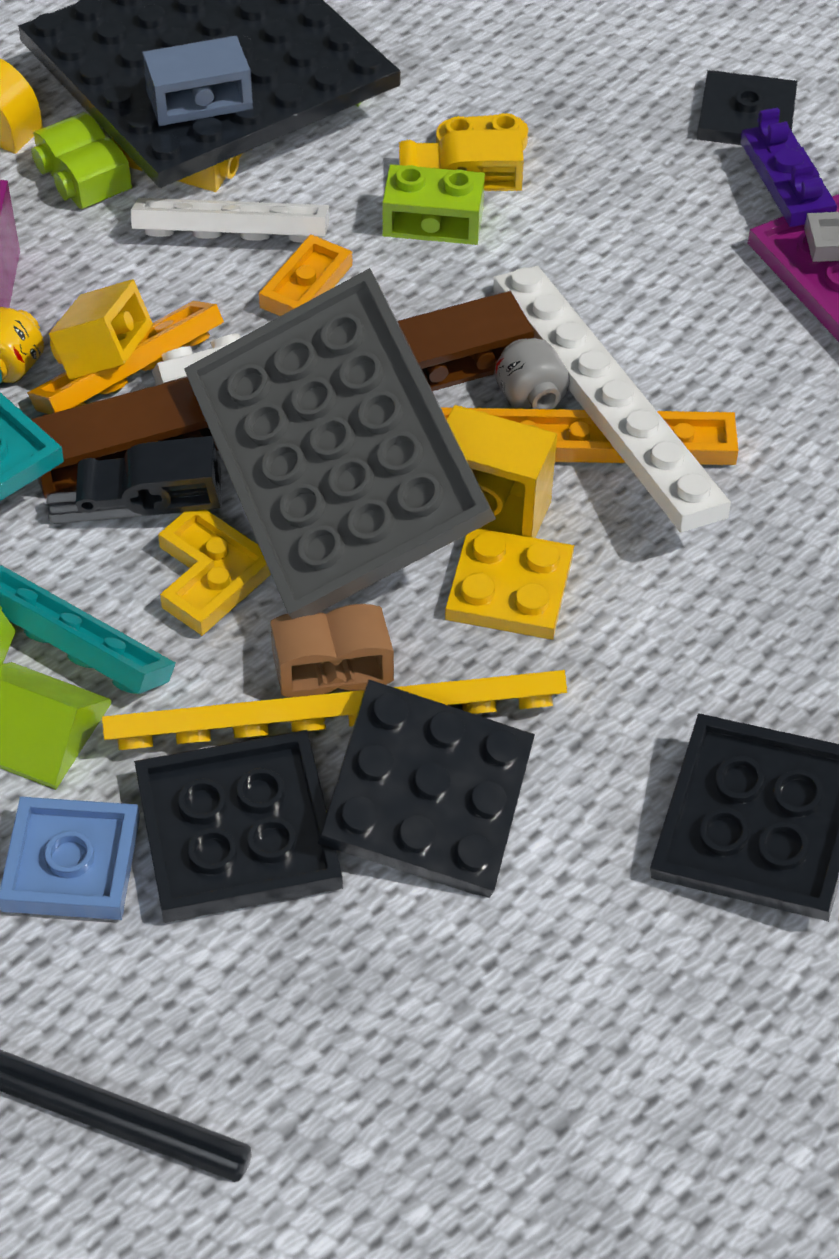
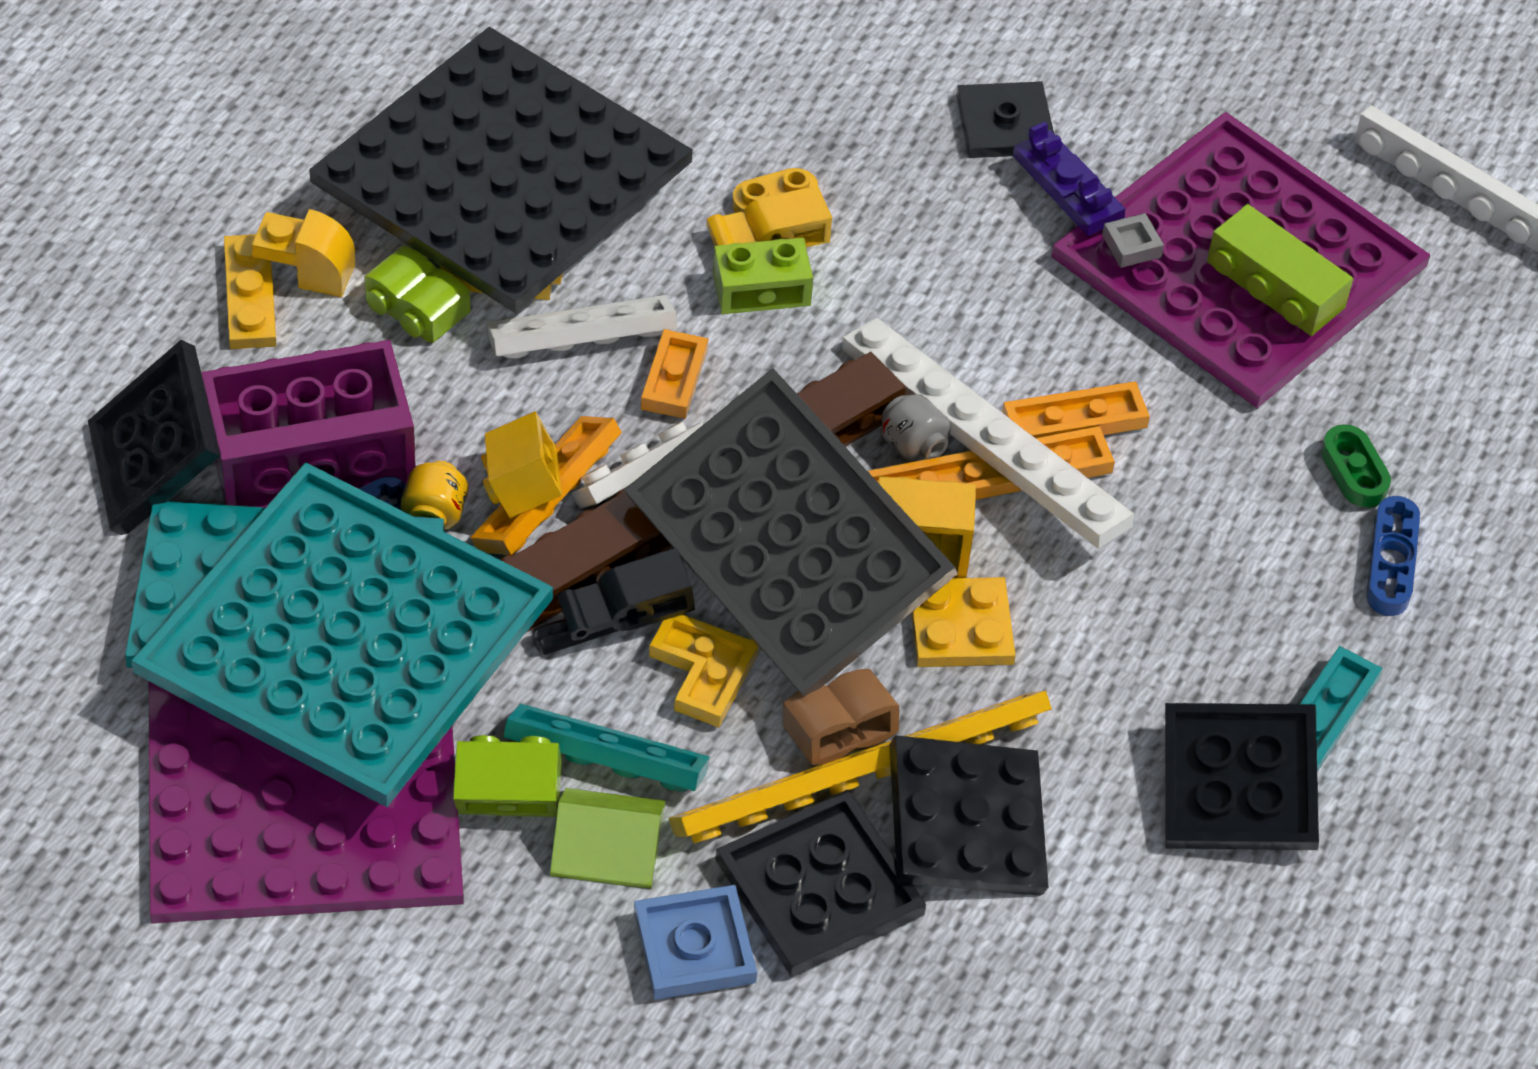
camera: 20 degrees left, 0 degrees up
(198, 80) = (523, 202): sand blue brick -> none
(753, 397) = (1111, 407): none -> light orange plate

